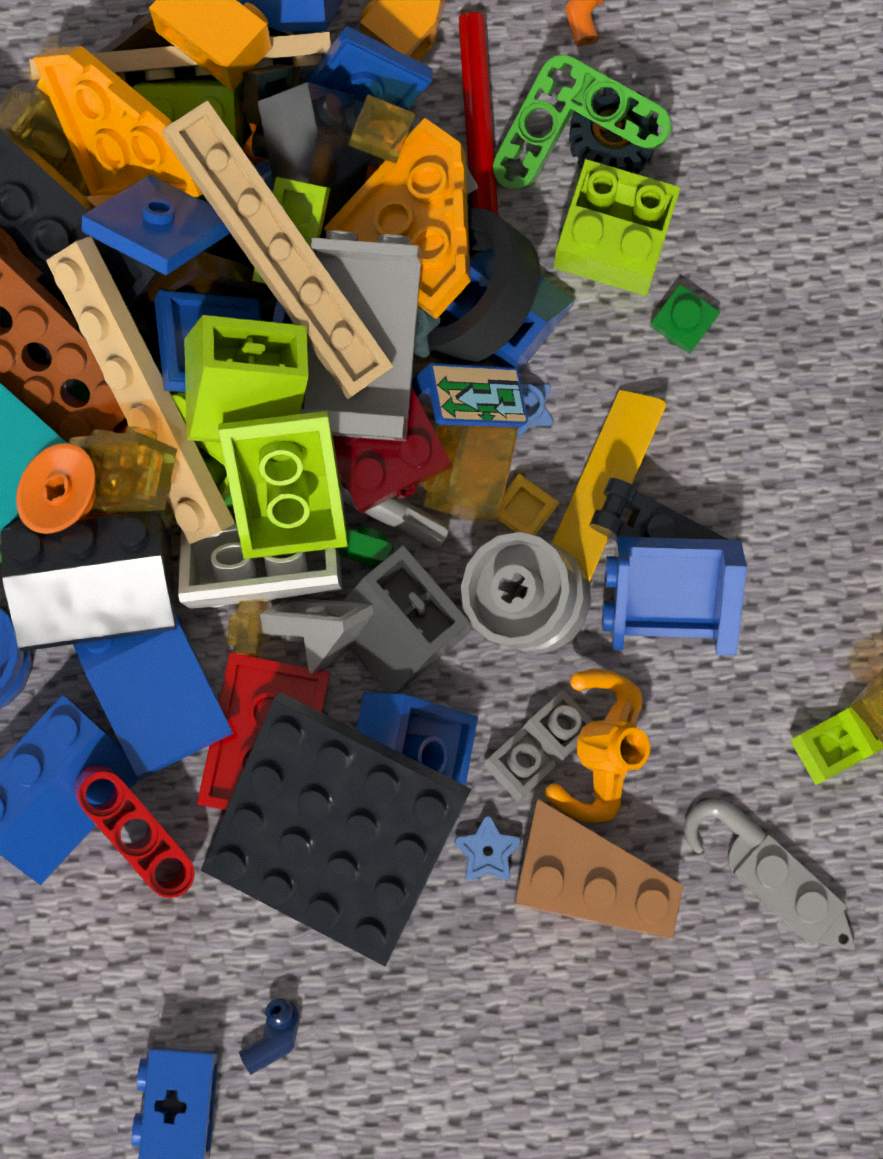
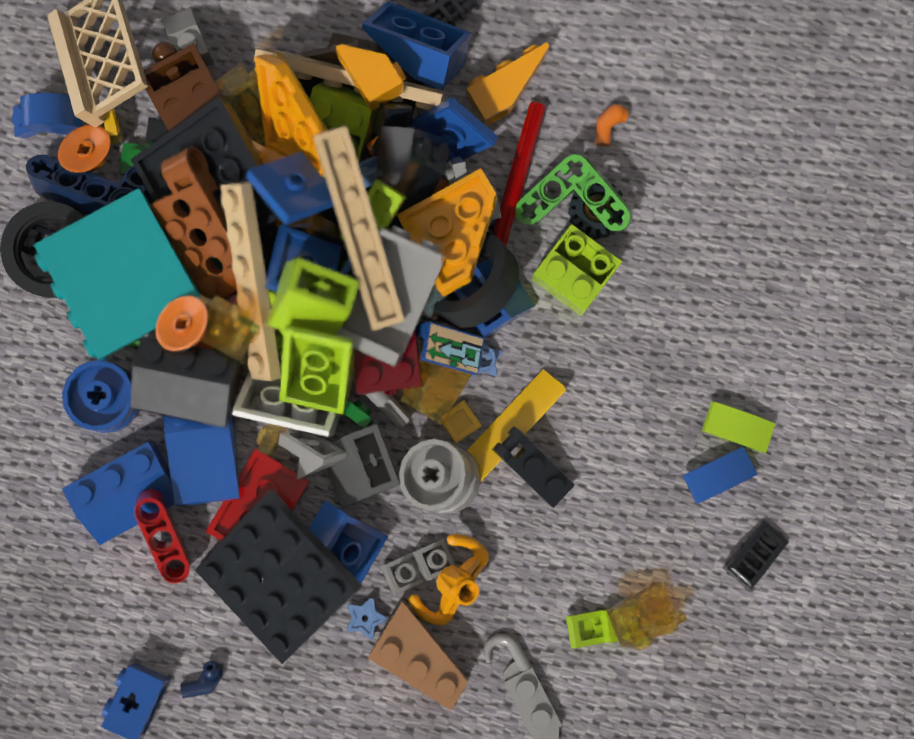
camera: 15 degrees right, 5 degrees up
(381, 129) = (451, 168): clear yellow plate -> none
(675, 590) = (529, 505): panel -> none
(685, 319) = (598, 339): green plate -> none

